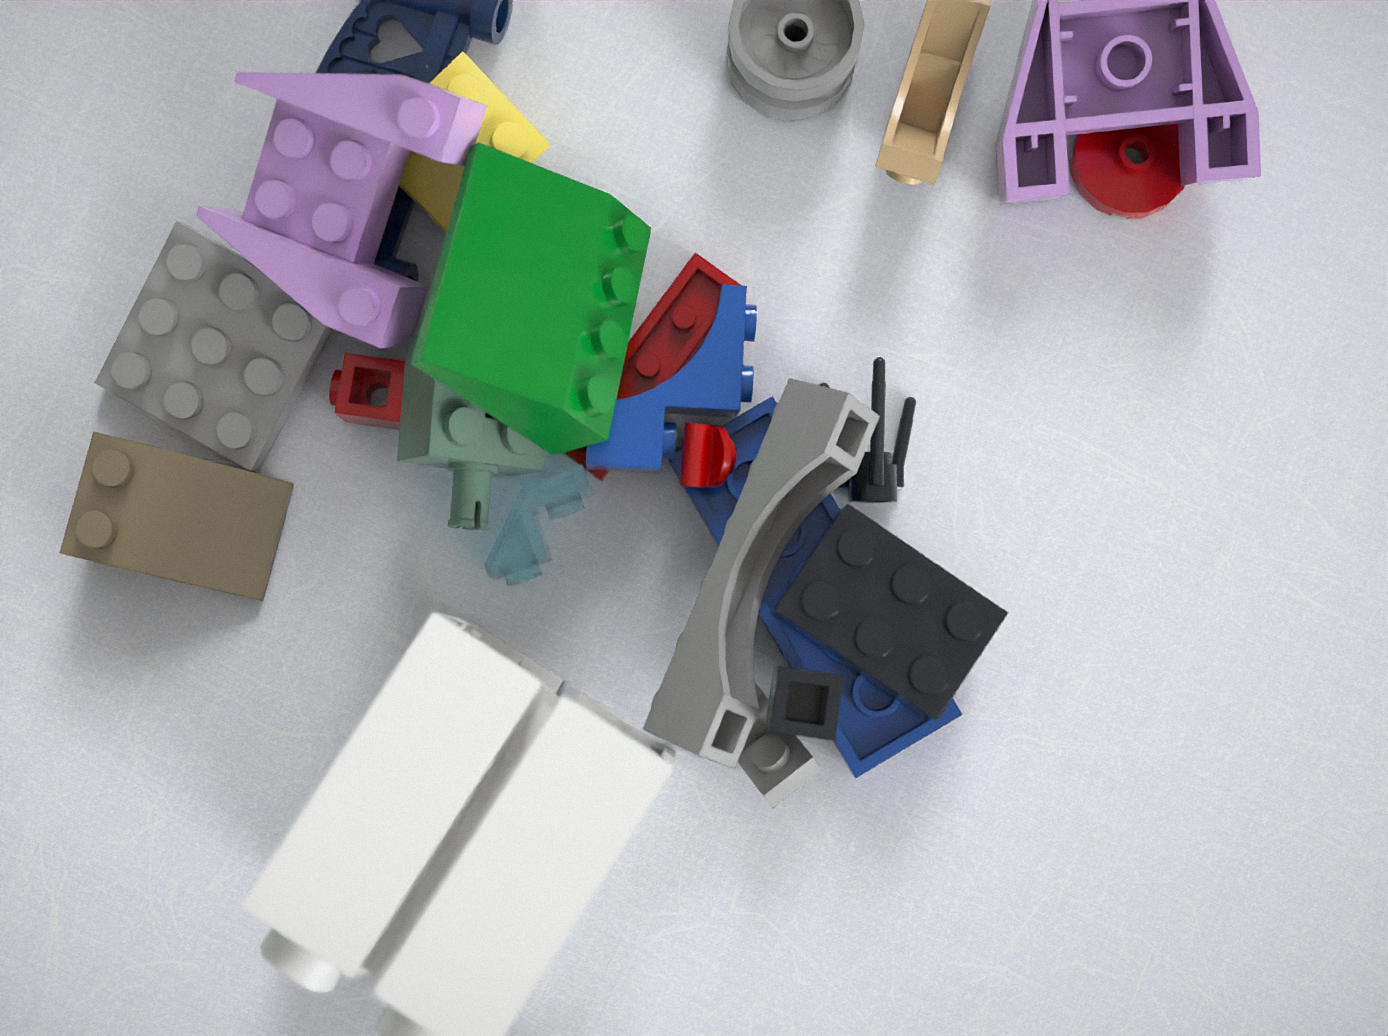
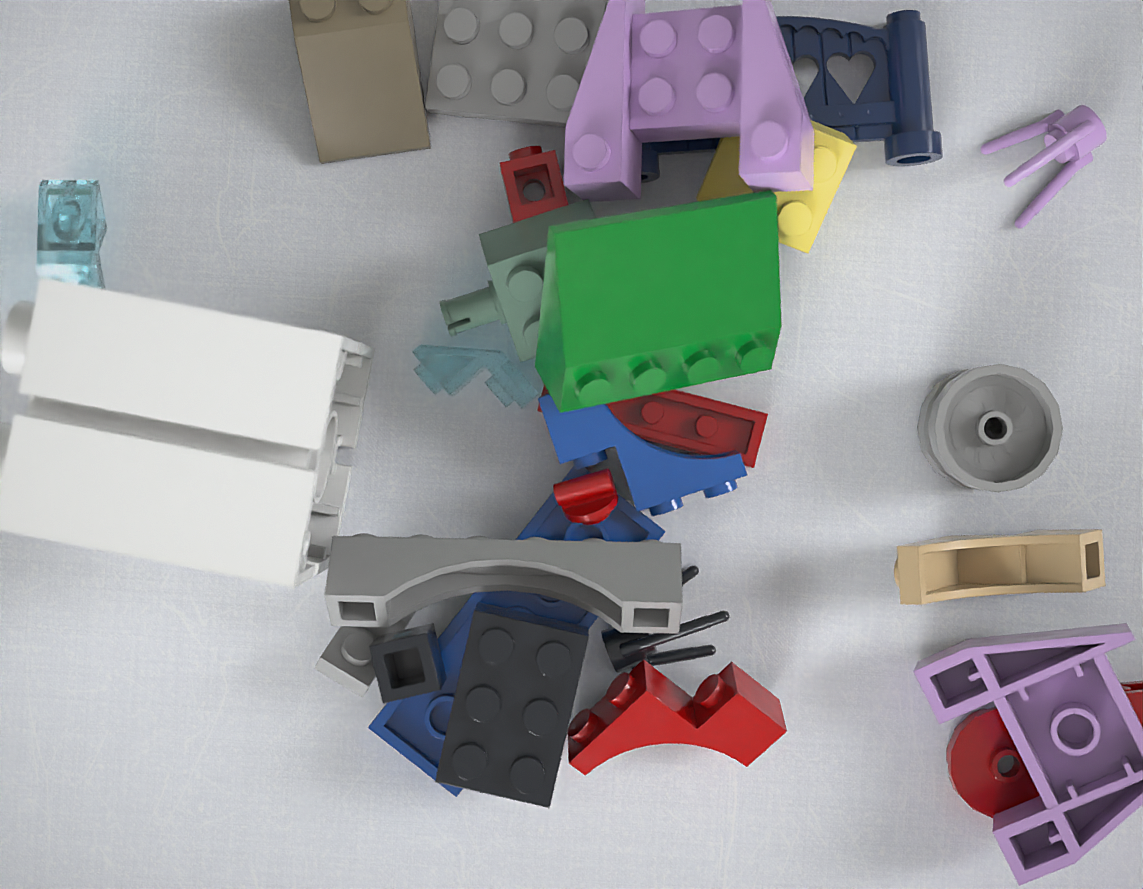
camera: 70 degrees right, 5 degrees up
(212, 883) = (70, 231): none -> clear light blue slope
(946, 482) = (647, 709): none -> red arch

